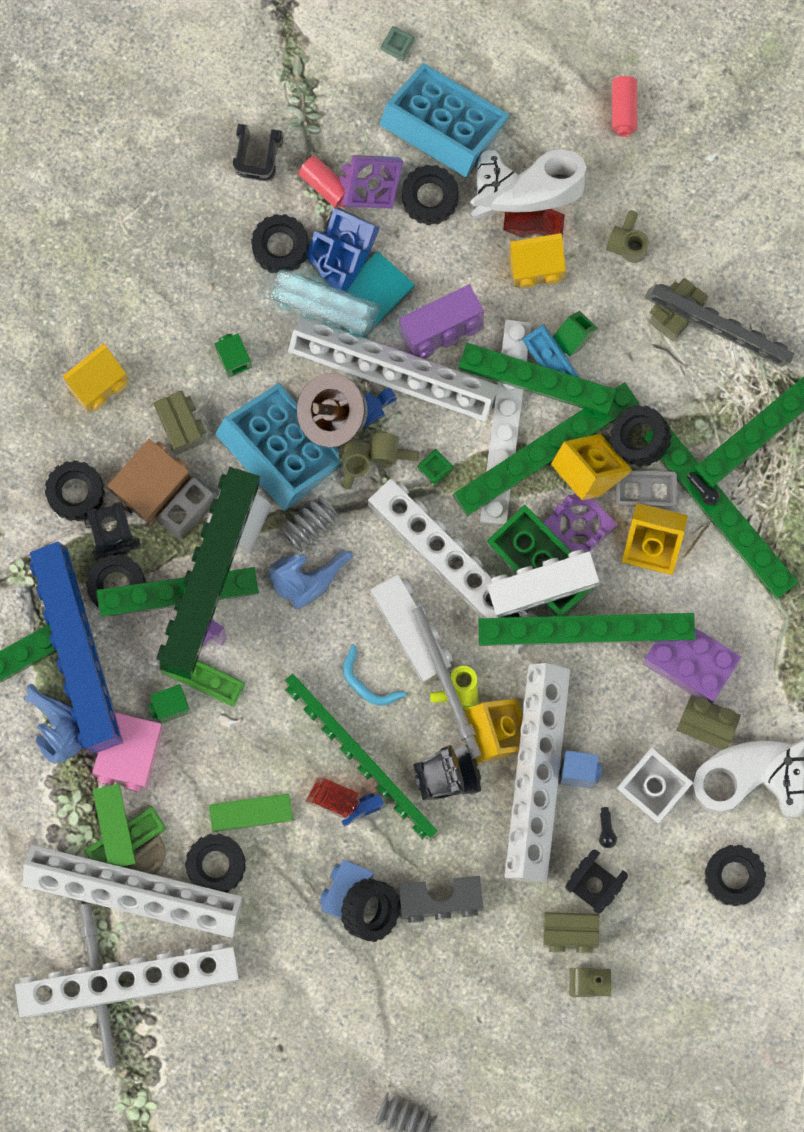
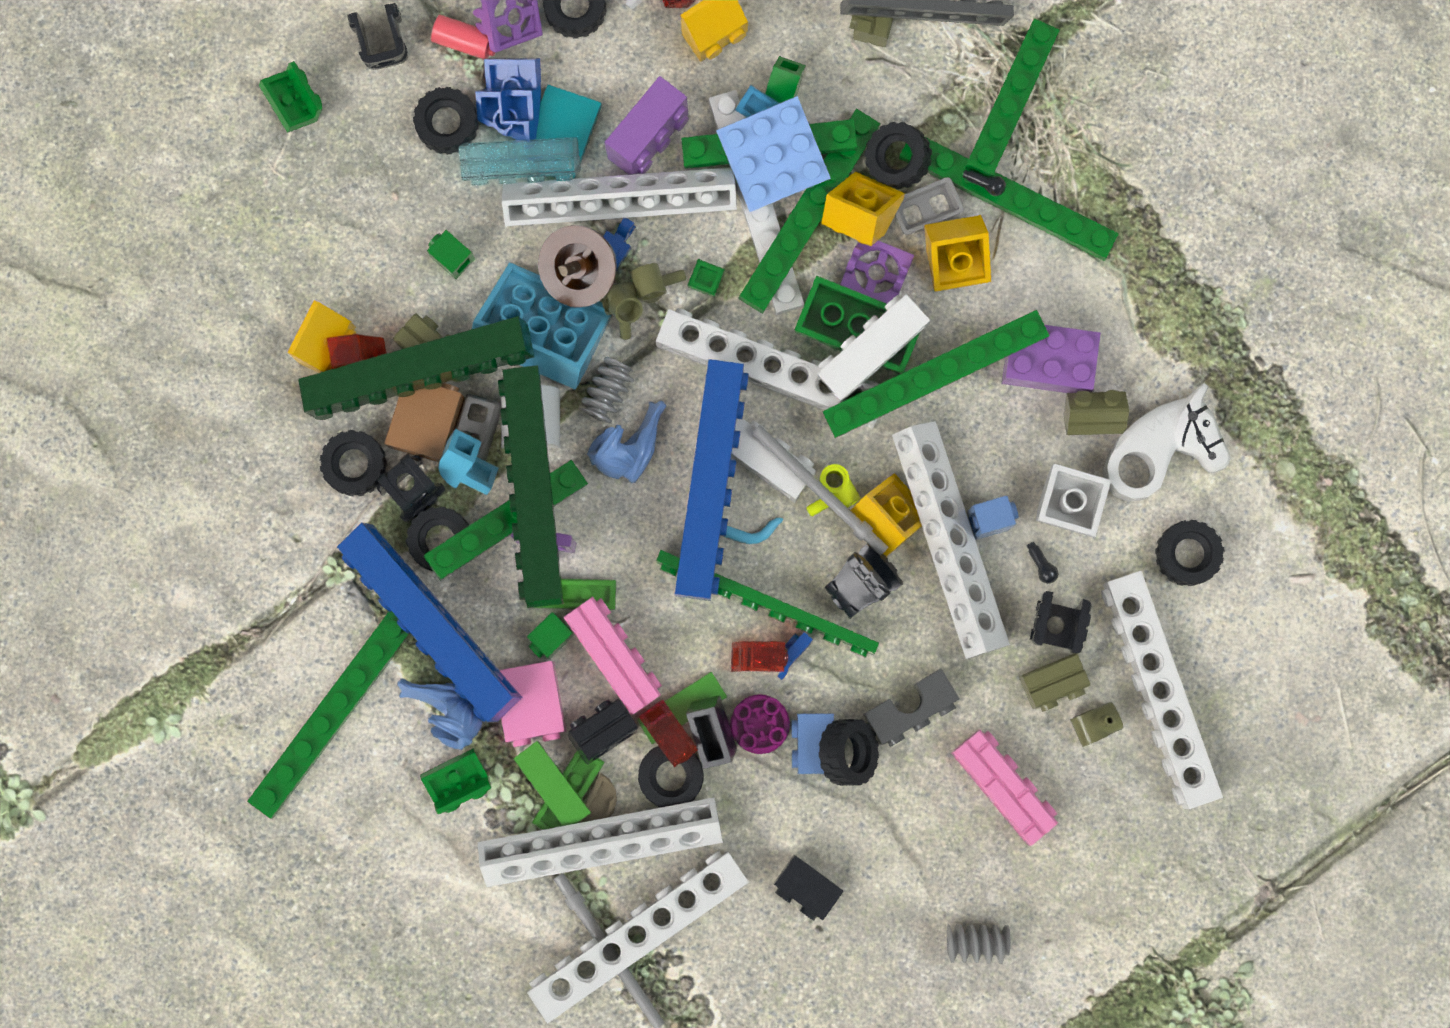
camera: 25 degrees left, 5 degrees up
(38, 788) = (456, 781): none -> green bracket
(120, 399) = (353, 348): none -> clear red slope
(161, 435) = (416, 368): none -> dark green brick
(162, 531) = (462, 465): none -> medium azure brick
(163, 171) = (292, 98): none -> green bracket
(175, 800) = (602, 730): none -> black brick
(213, 742) = (612, 655): none -> bright pink brick
(229, 826) = (668, 733): none -> clear red slope
(265, 841) = (711, 732): none -> piece
(285, 1007) = (807, 888): none -> black piece
(309, 855) = (760, 724): none -> magenta tile
(358, 634) = (709, 480): none -> blue brick
(488, 1000) = (1004, 787): none -> bright pink brick
(535, 389) = (773, 154): none -> light blue plate
(673, 882) = (1205, 787): none -> white brick

